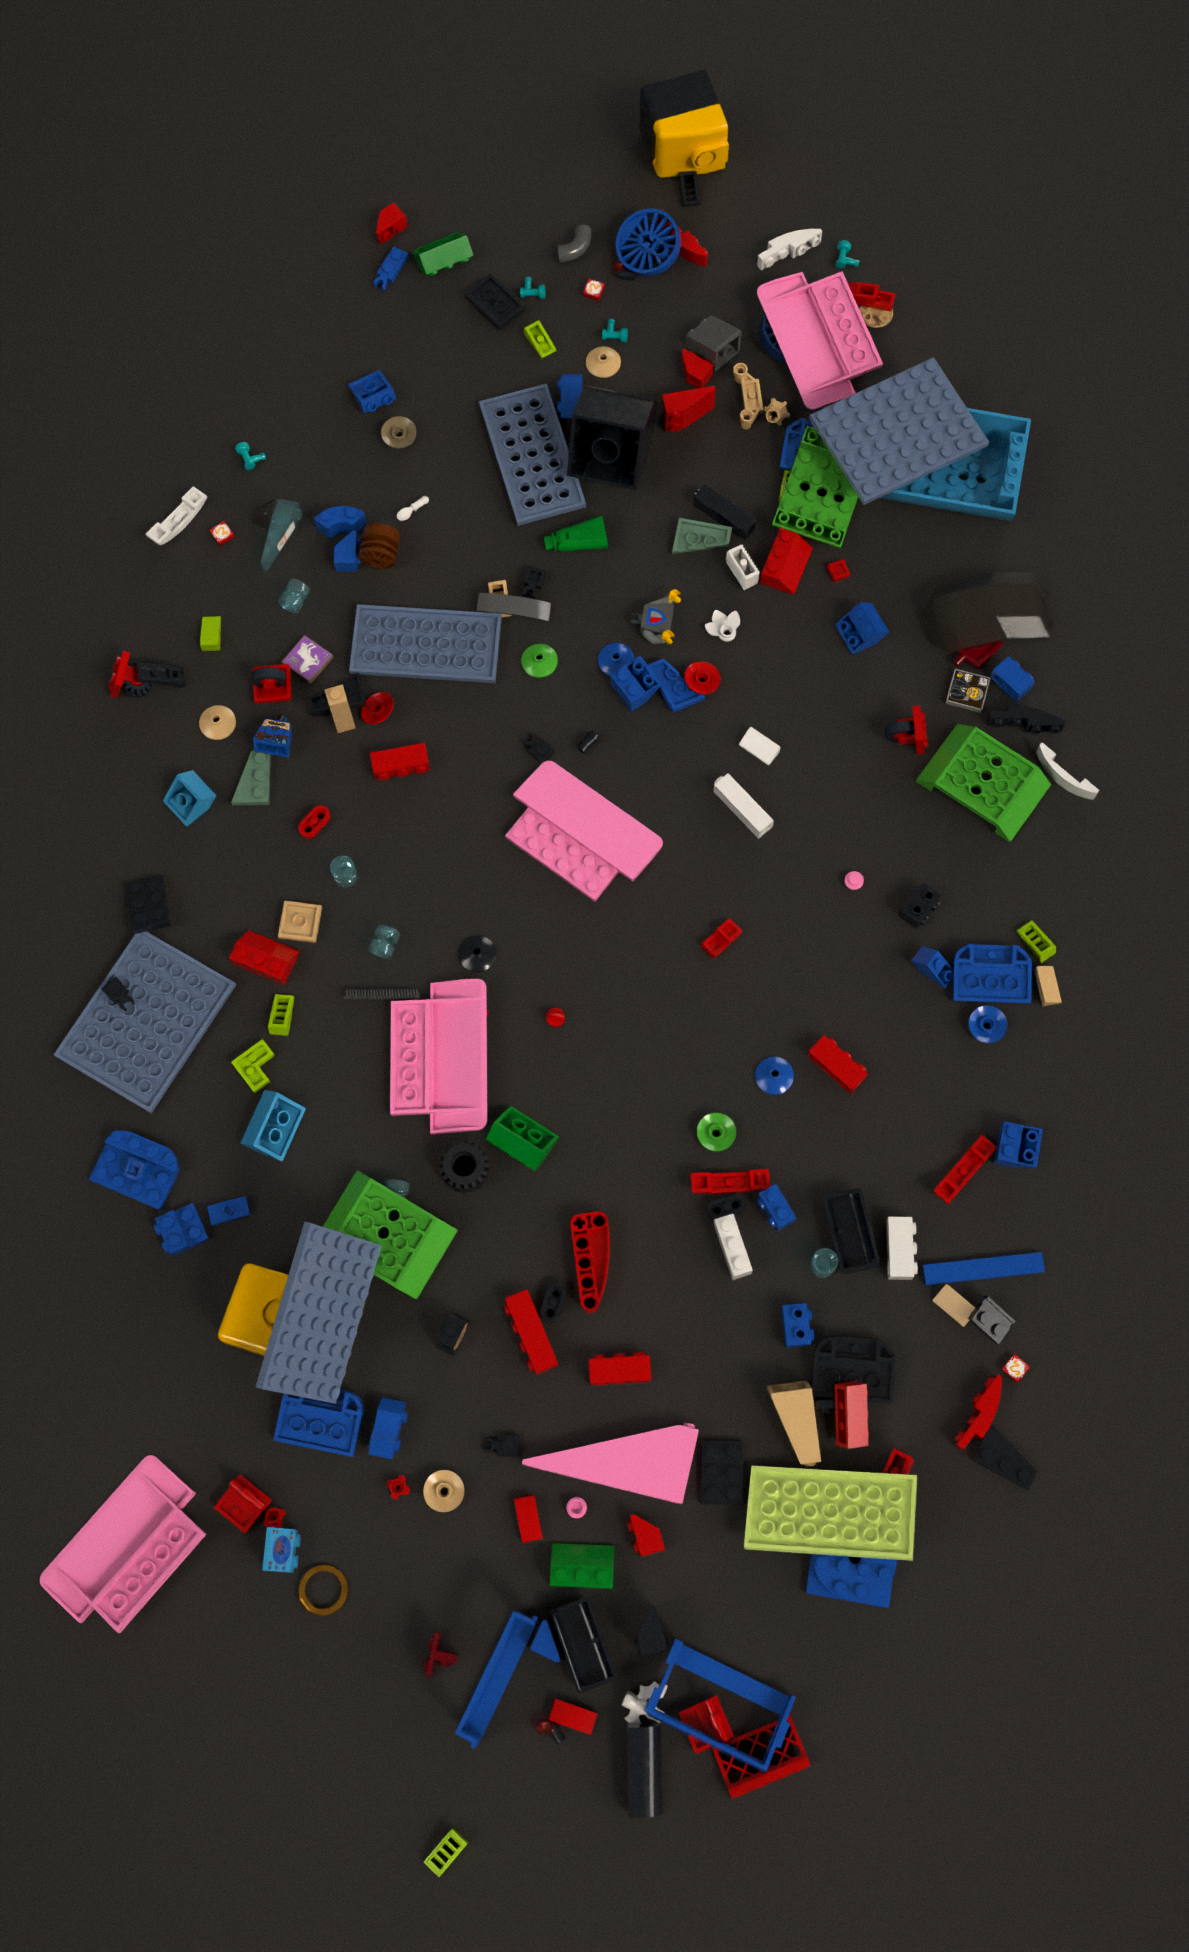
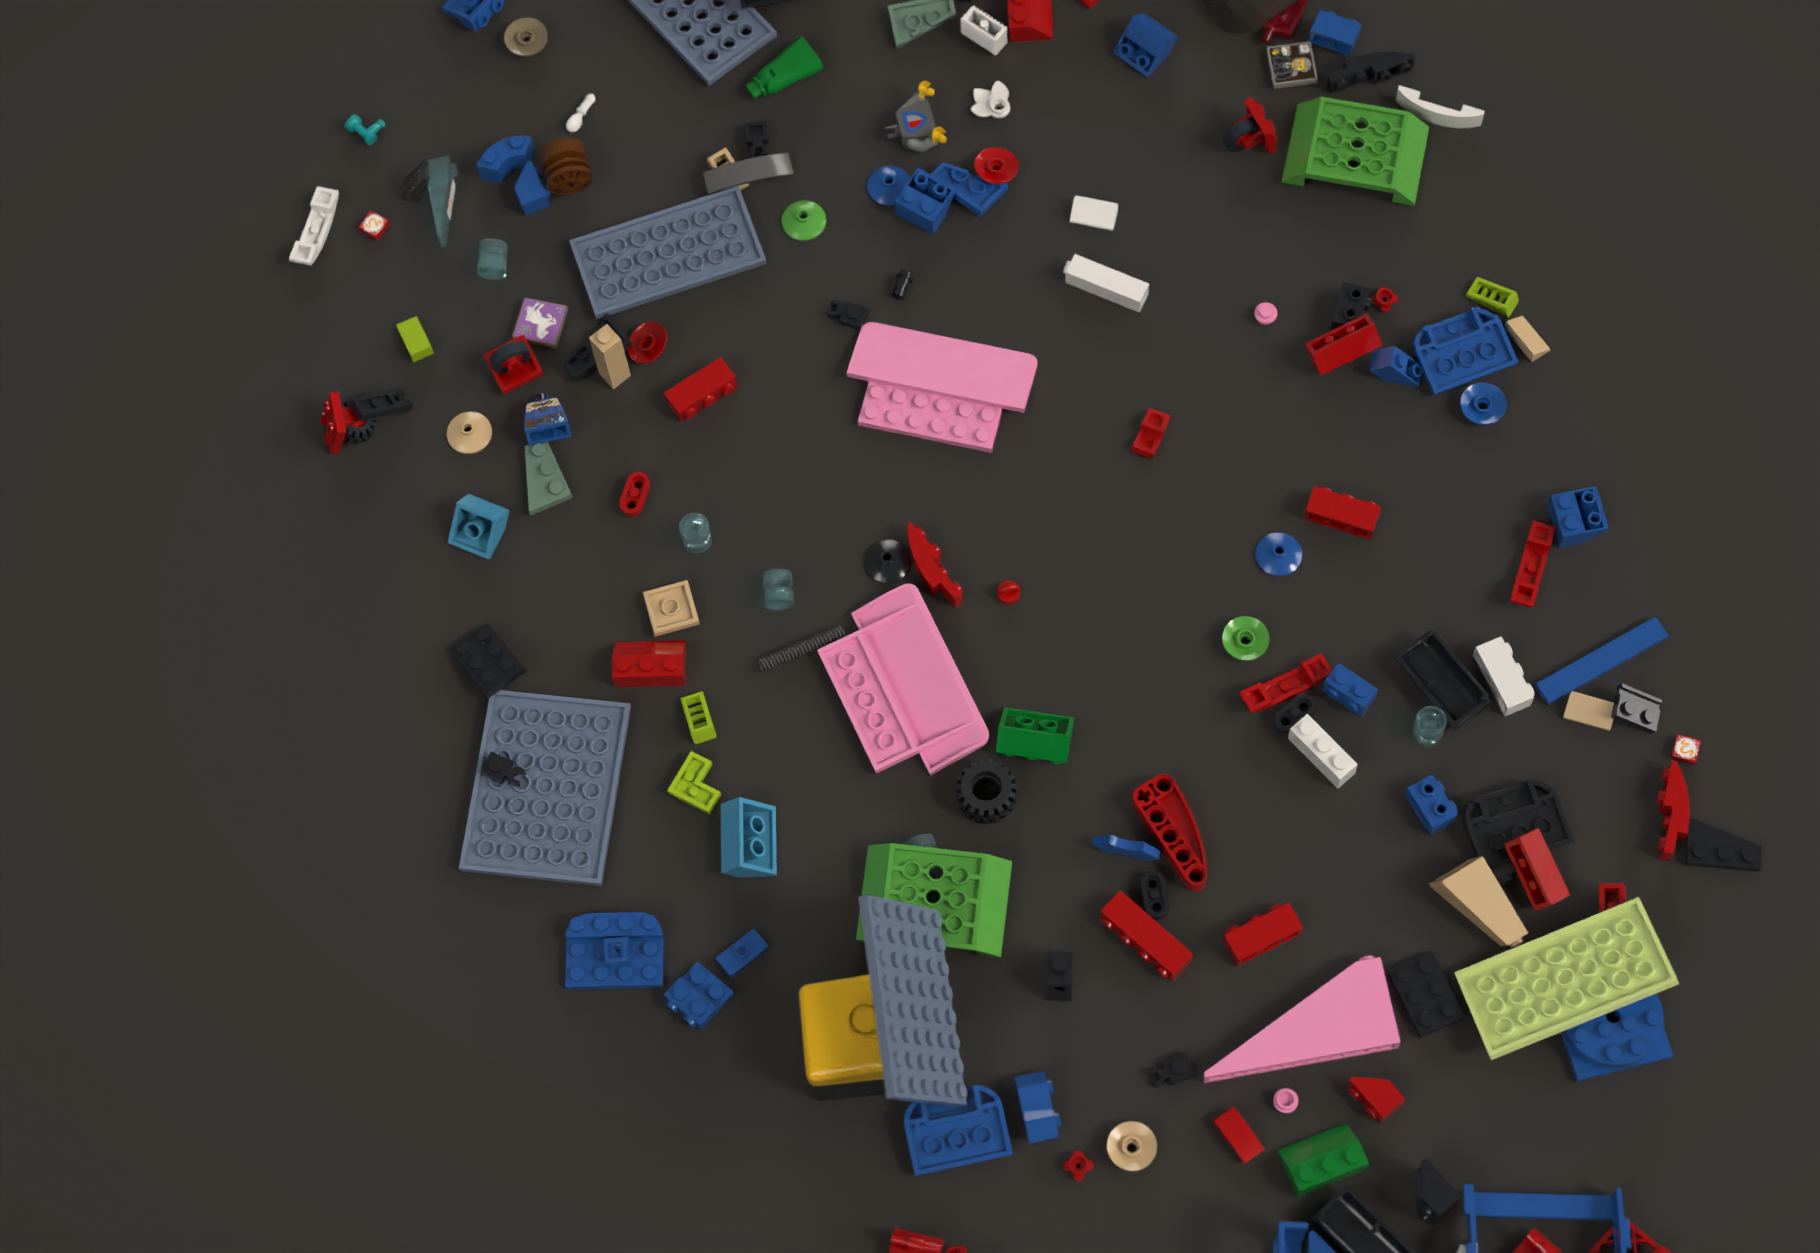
camera: 20 degrees left, 5 degrees down
(504, 966) = (926, 561): none -> red slope
(554, 1261) = (1115, 845): none -> blue tile
(900, 931) = (1343, 344): none -> red brick
(952, 902) = (1388, 295): none -> red plate

